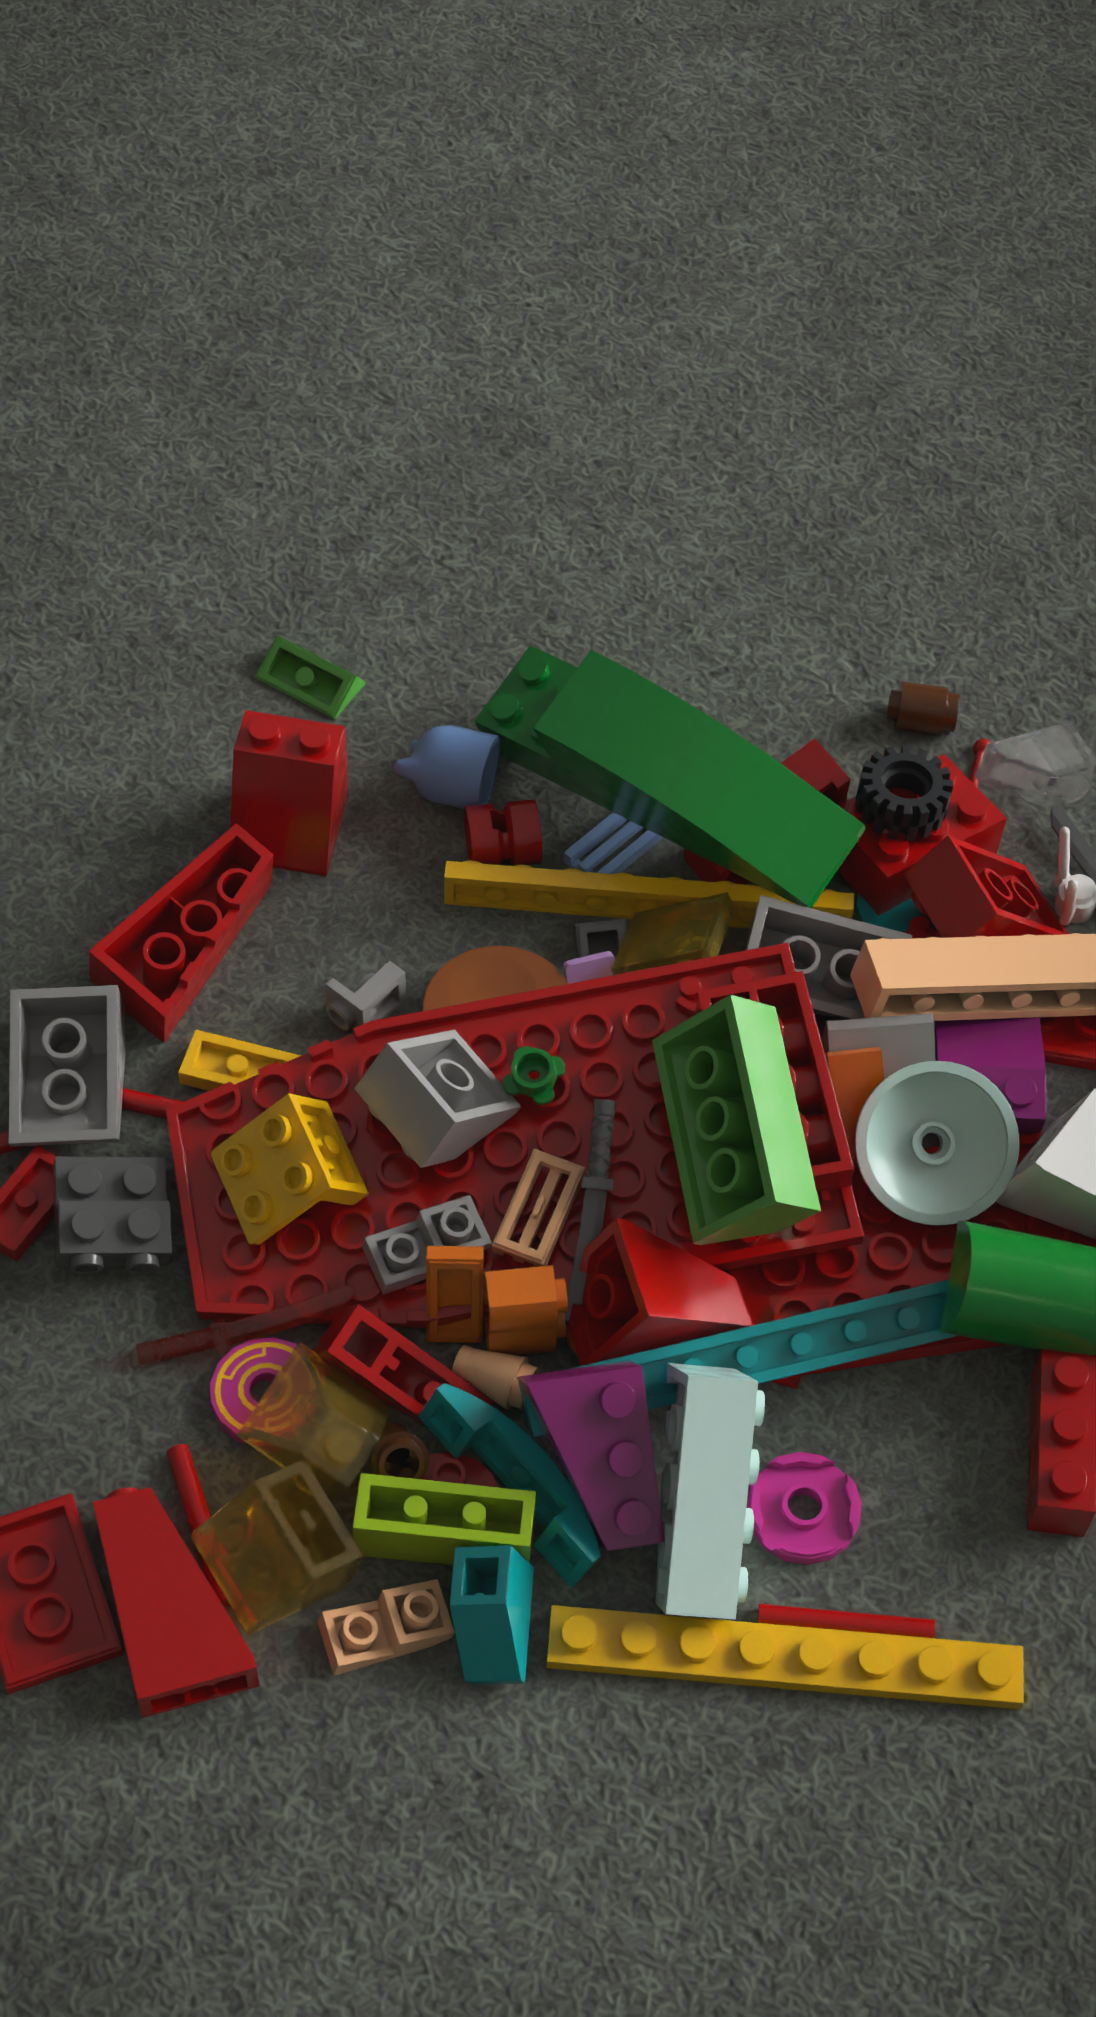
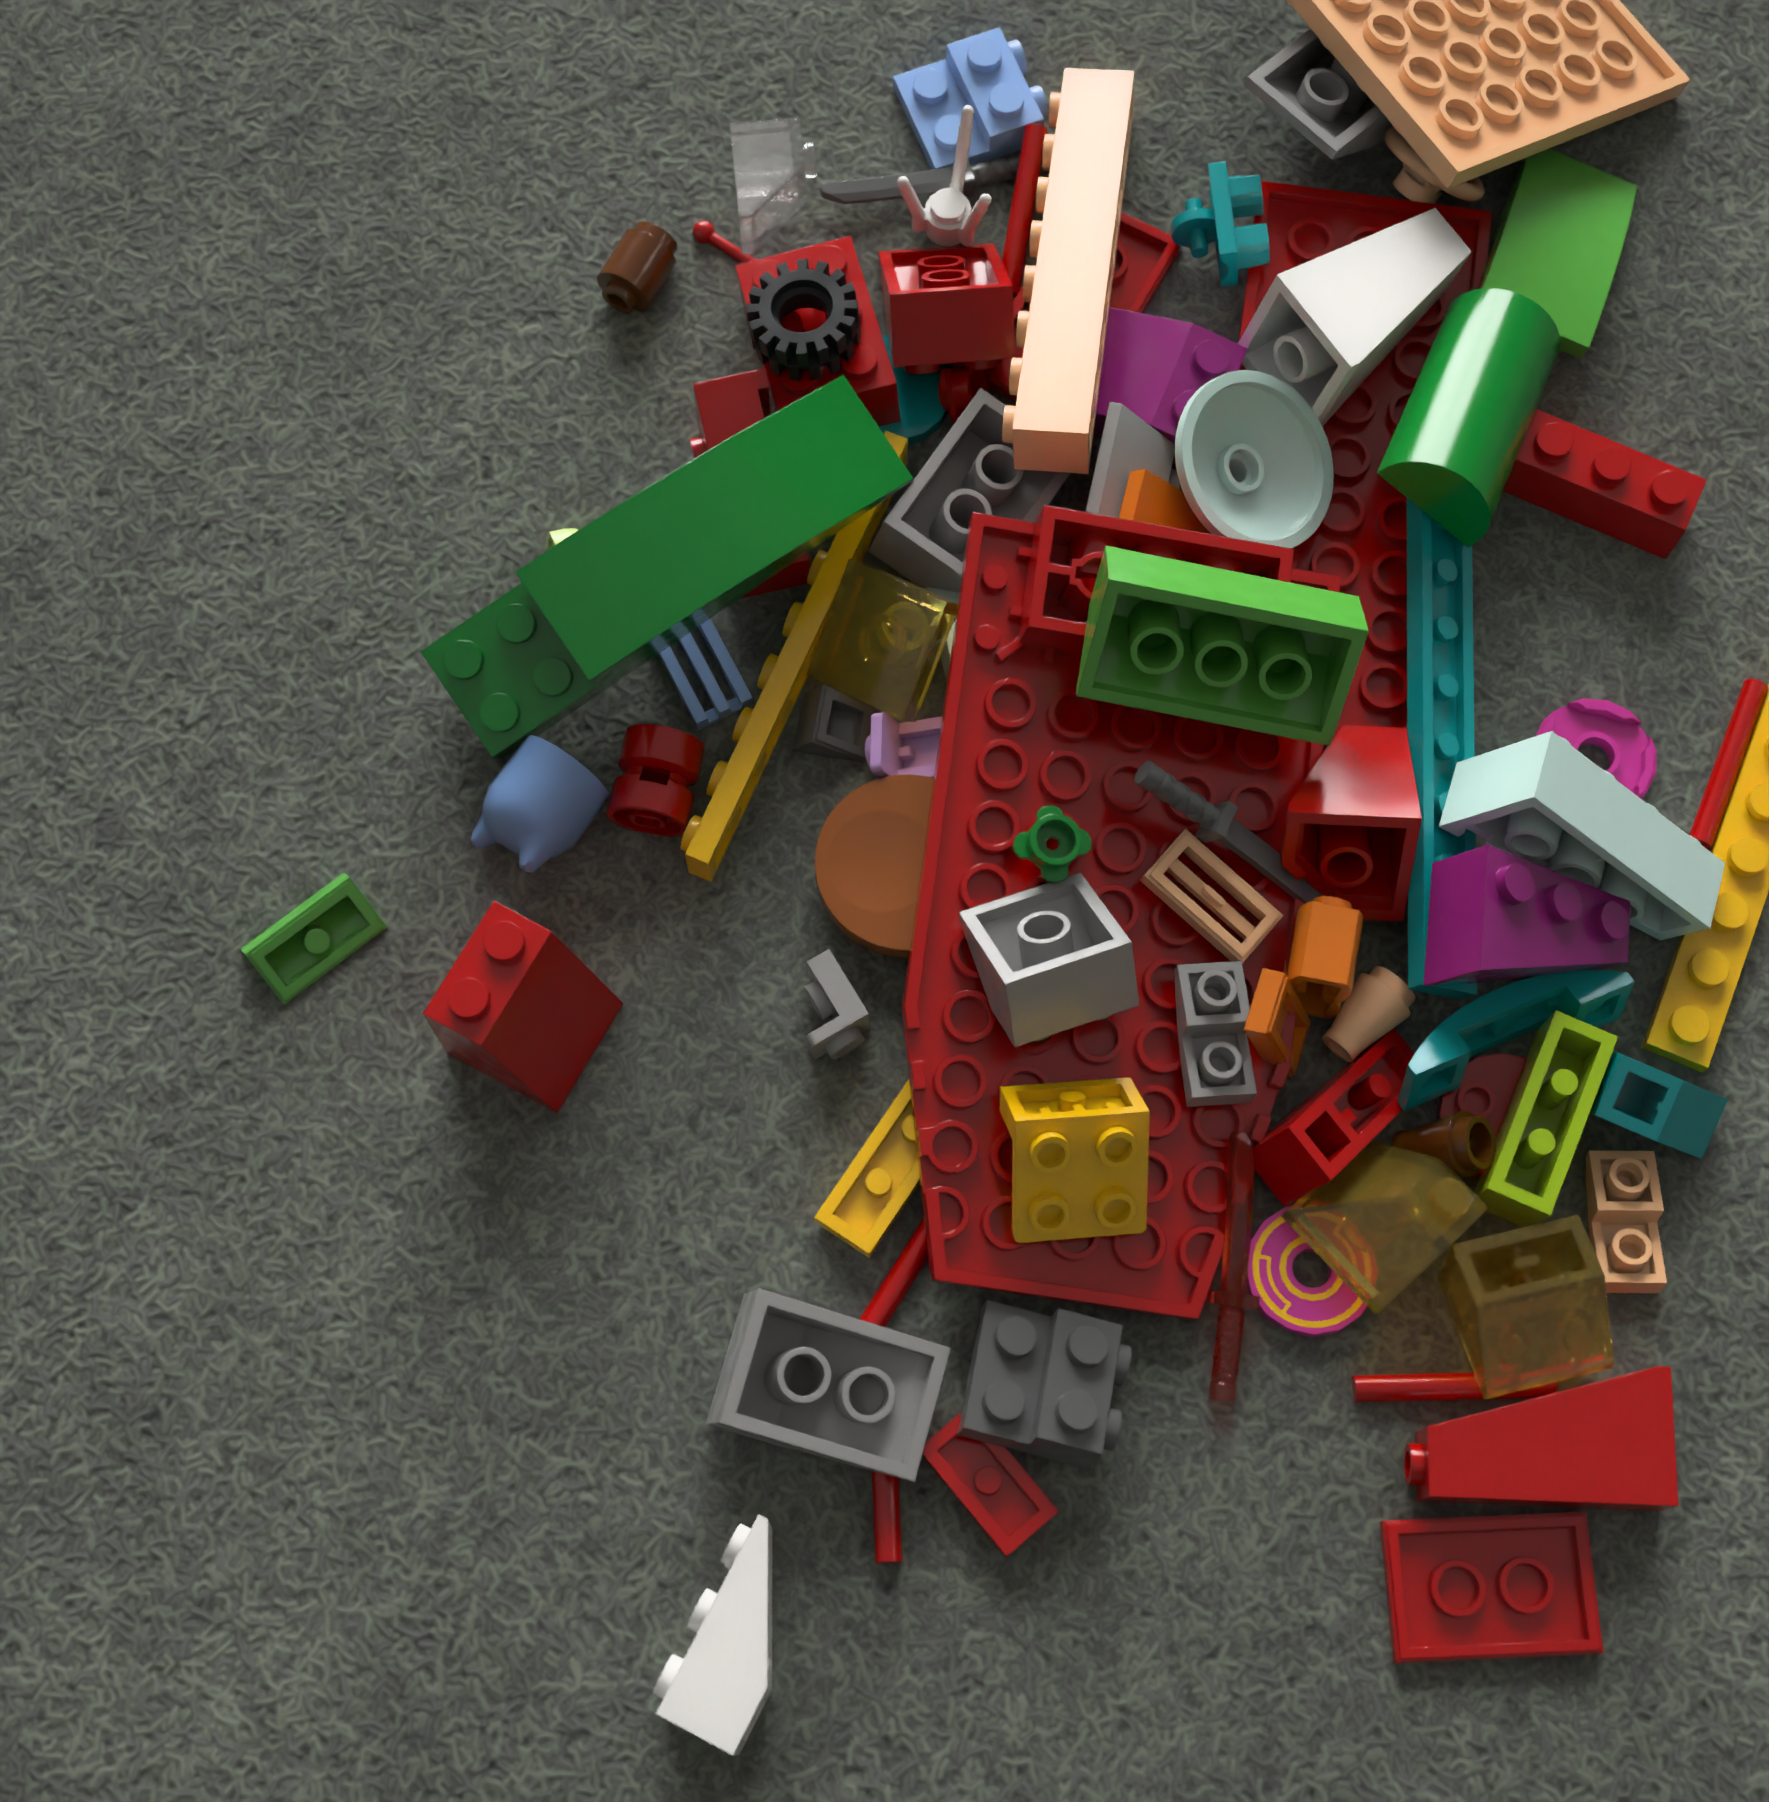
camera: 70 degrees left, 15 degrees up
(183, 931) = (682, 1203): red wedge -> none

